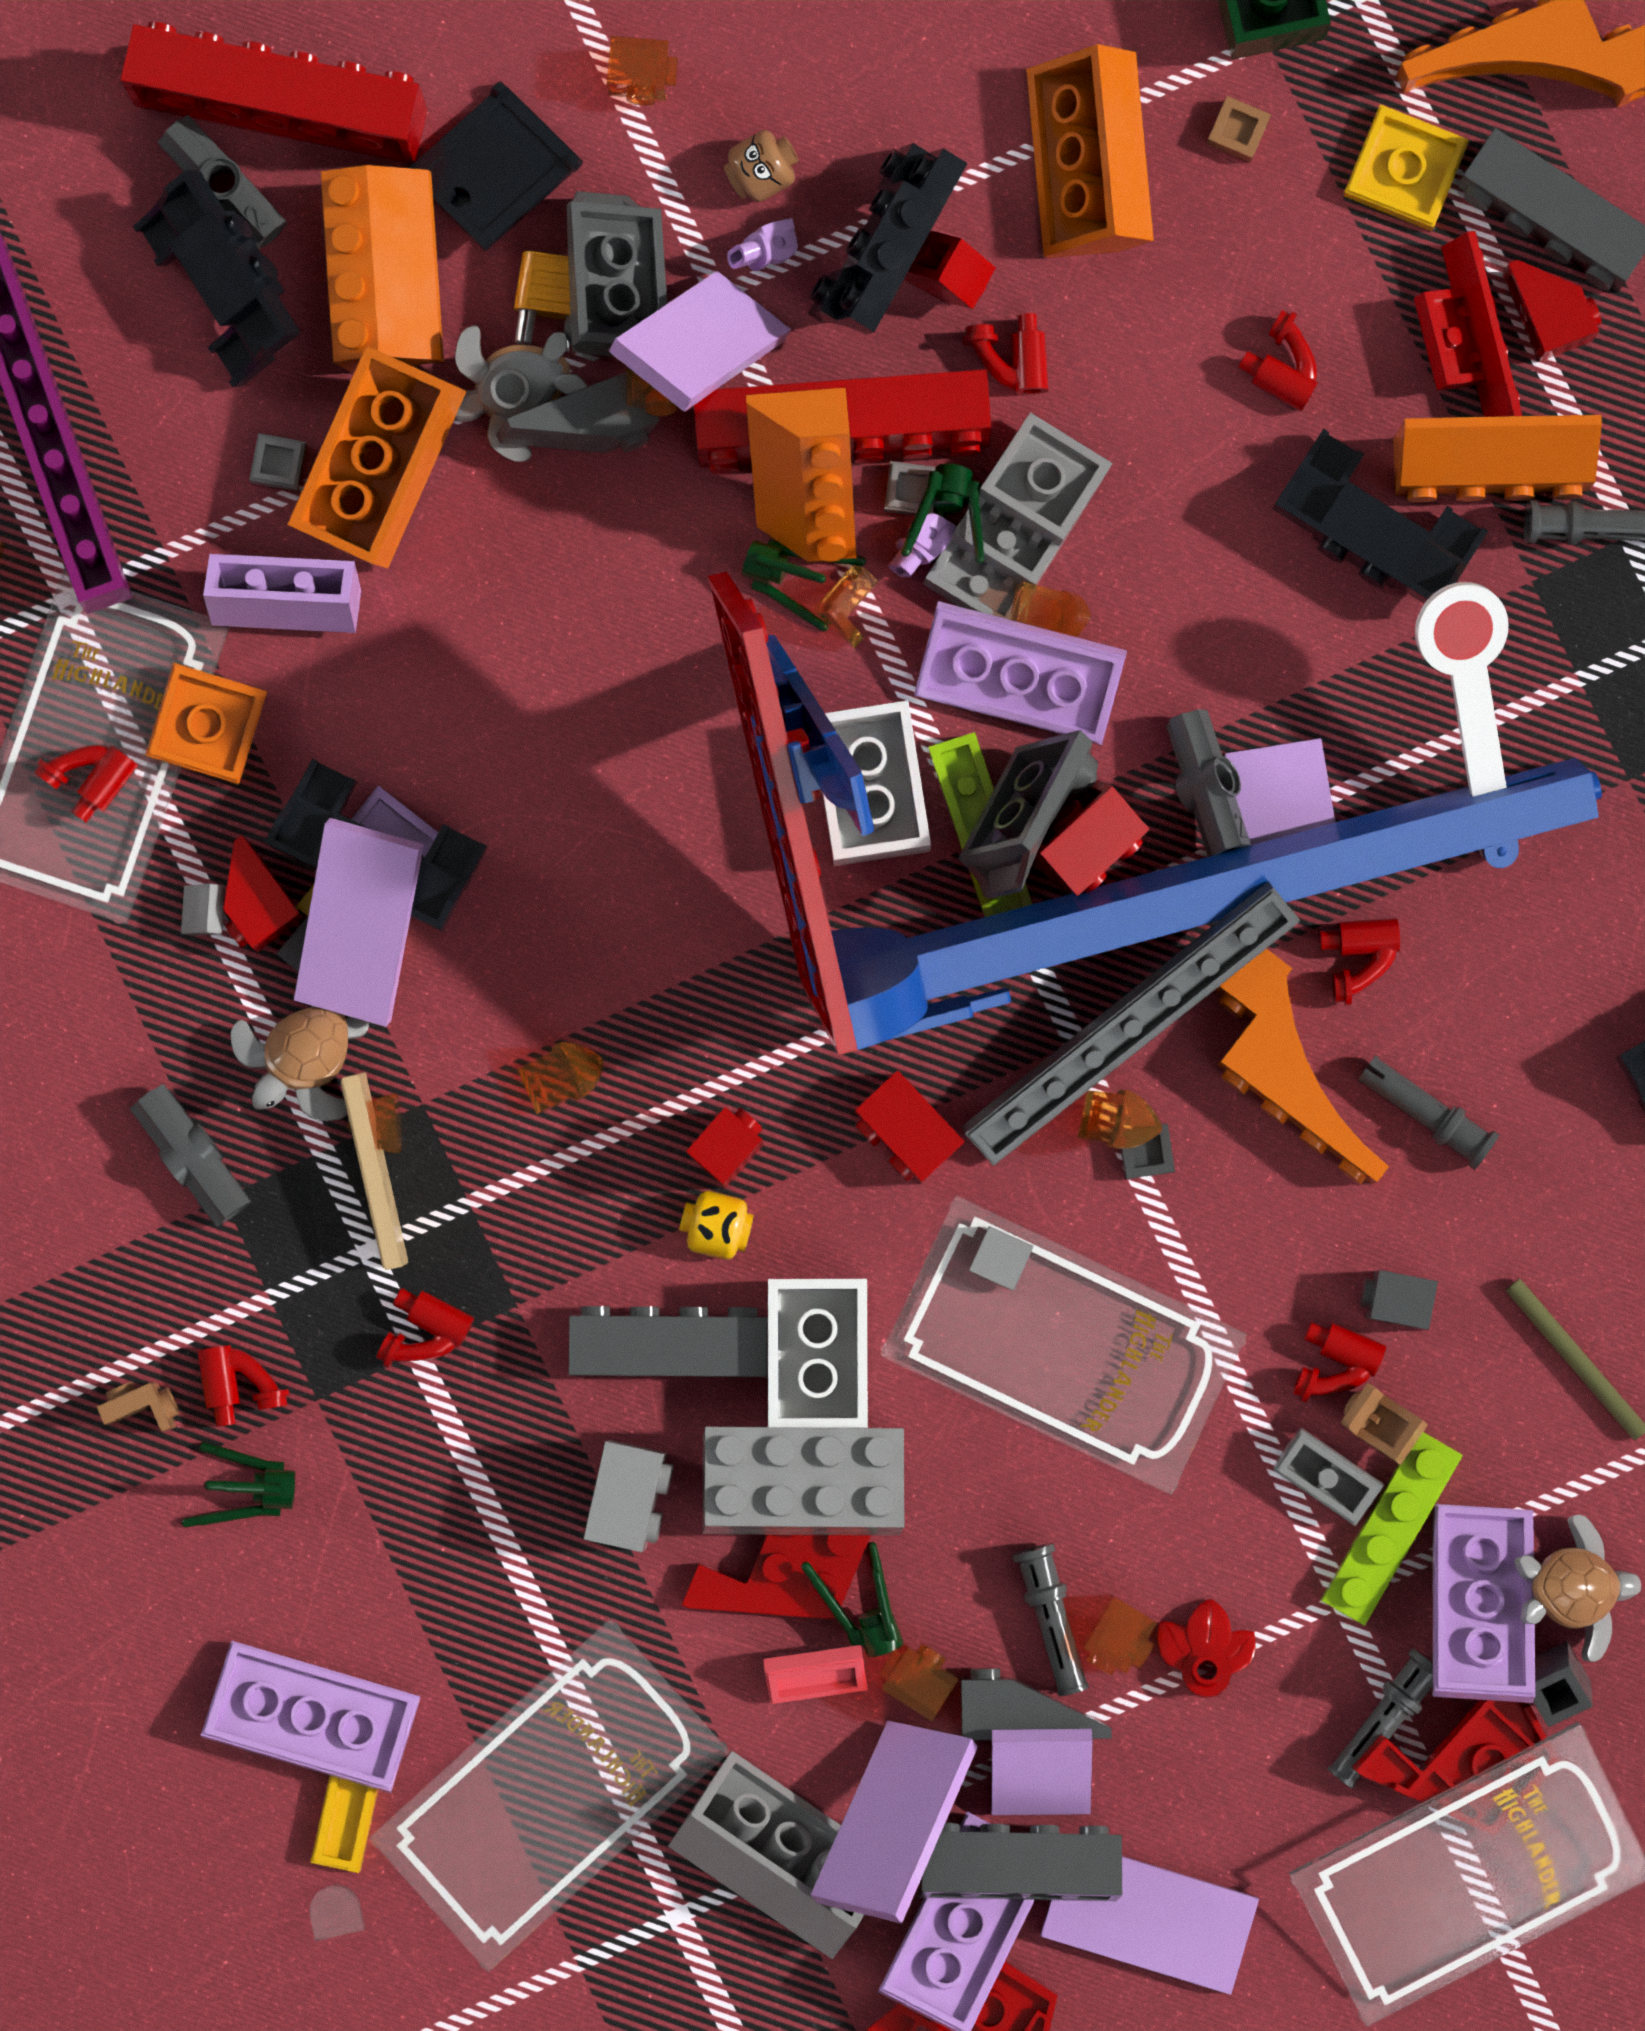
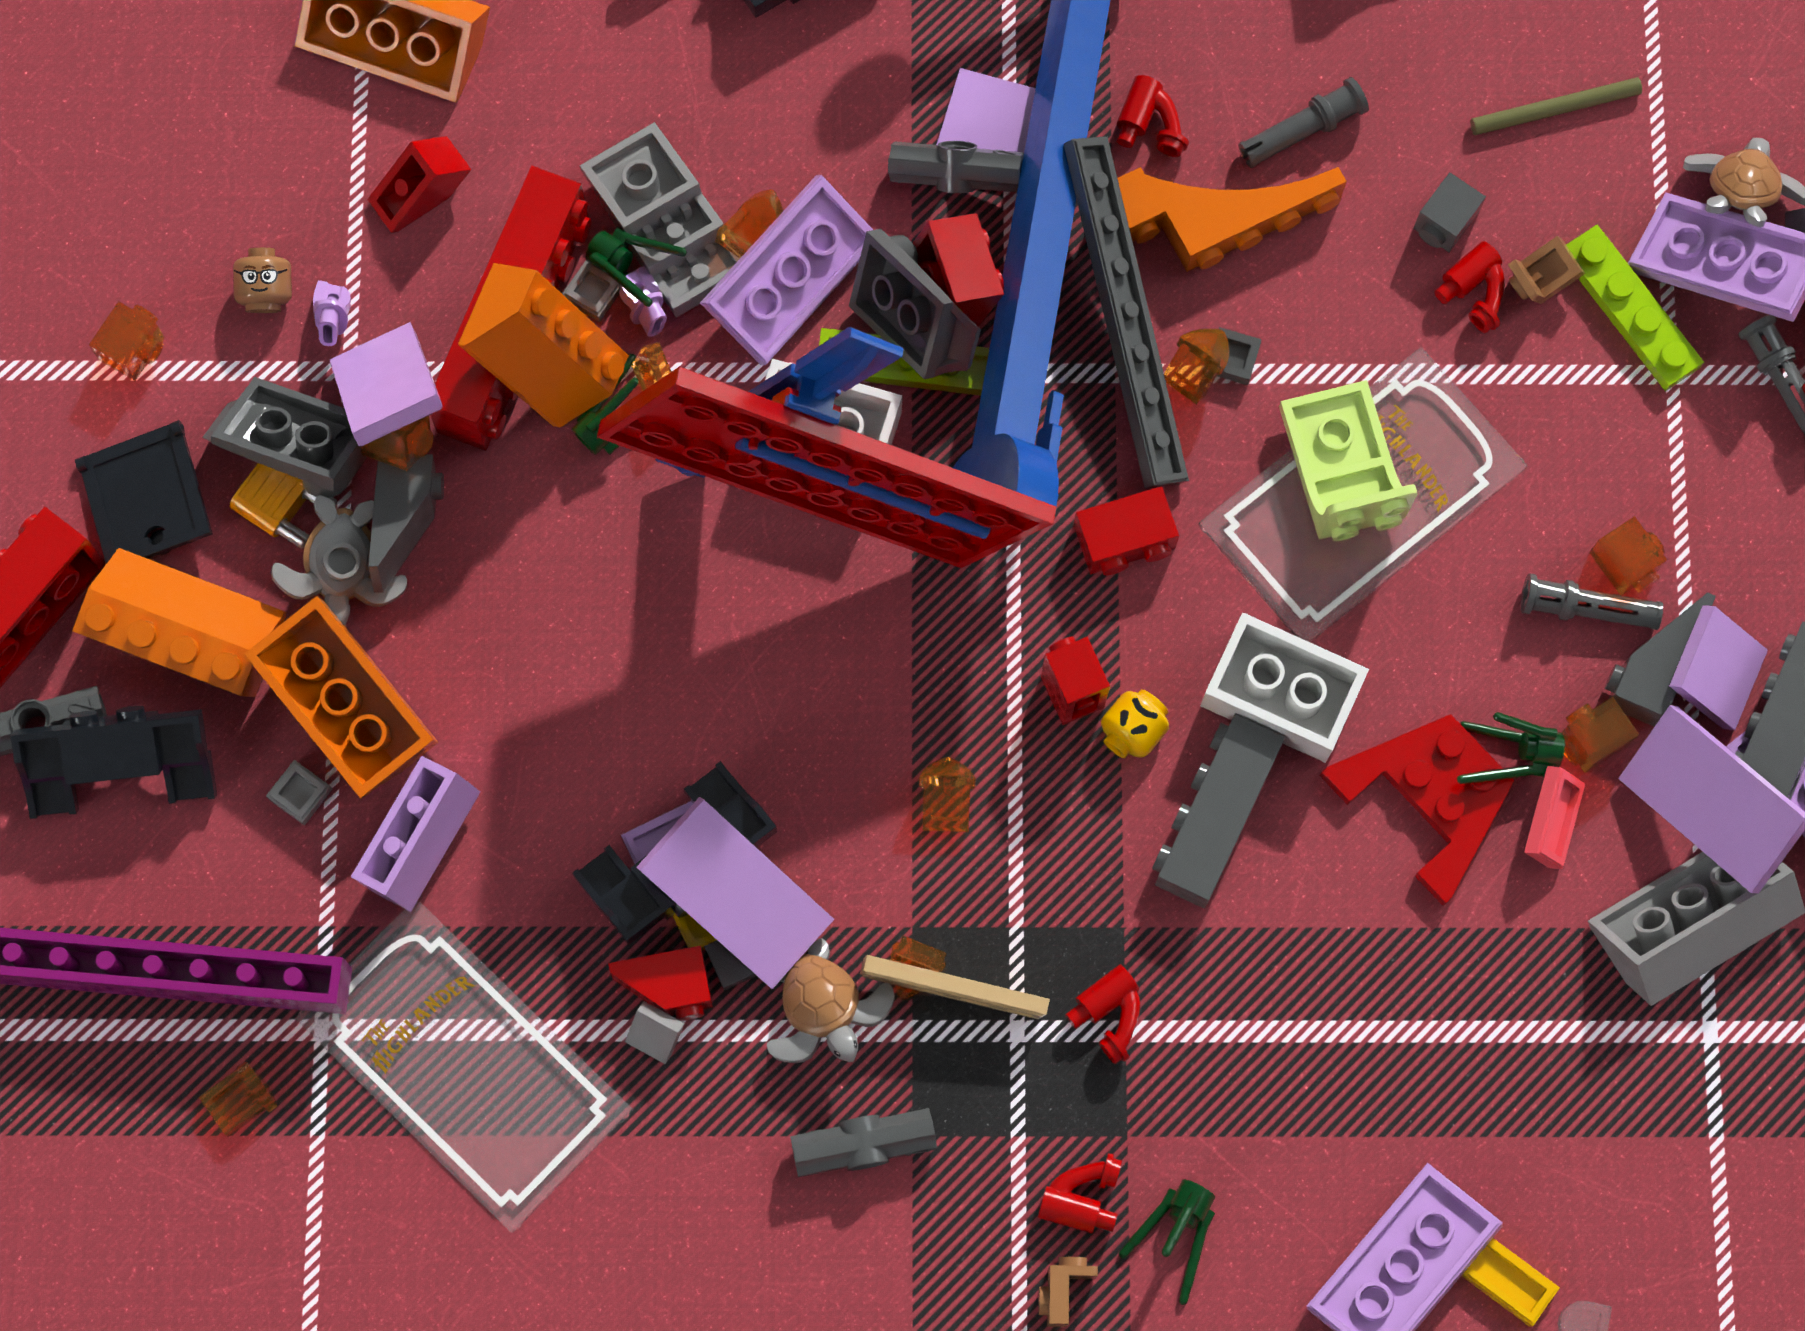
camera: 70 degrees left, 10 degrees down
(102, 784) = (502, 1068): red plant -> none
(205, 723) = (493, 956): orange tile -> none
(549, 1795) = (1560, 1094): clear piece -> none
(627, 1496) = (1336, 897): light grey brick -> none
(803, 1481) = (1388, 746): light grey brick -> none
(881, 254) = (362, 174): black bracket -> none
(1001, 1258) = (1270, 508): light grey tile -> none
(1029, 366) = (528, 147): red plant -> none
(1081, 1310) = (1345, 462): none -> yellowish green bracket
(1206, 1641) = (1663, 491): red plate -> none
(1327, 1476) = (1567, 333): light grey brick -> none

